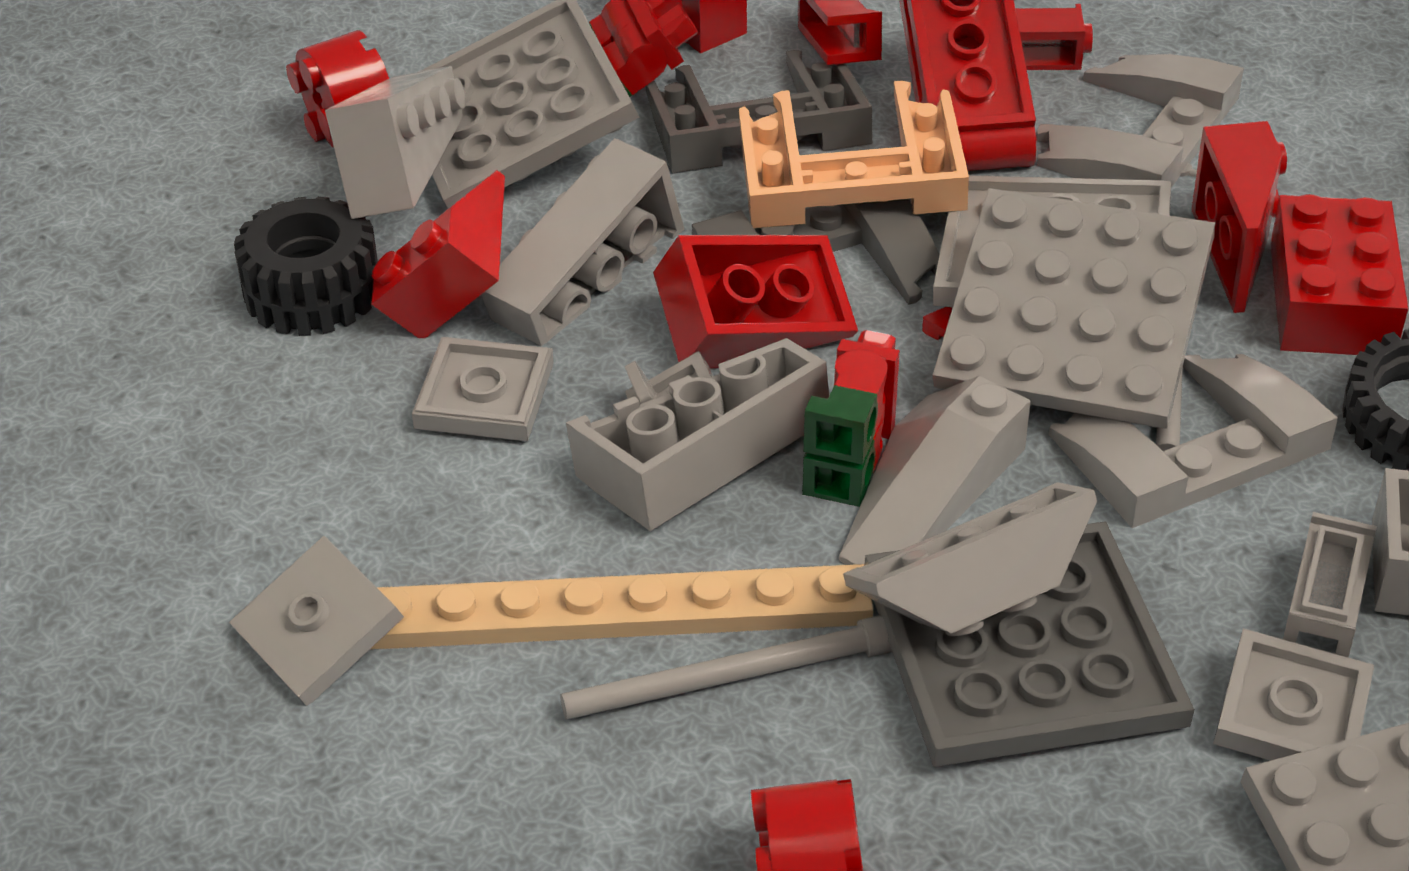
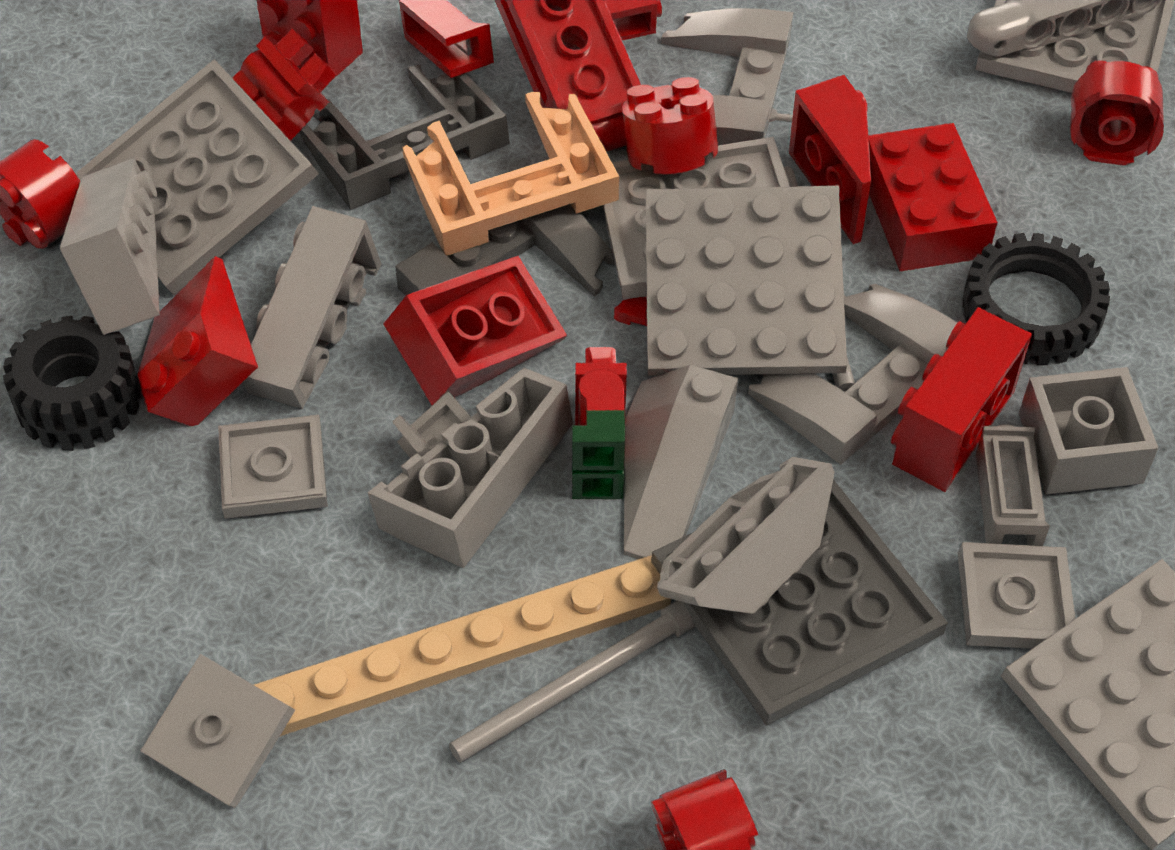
camera: 20 degrees left, 10 degrees up
(1049, 143) = (670, 126): none -> red brick
(1307, 459) = (959, 398): none -> red brick

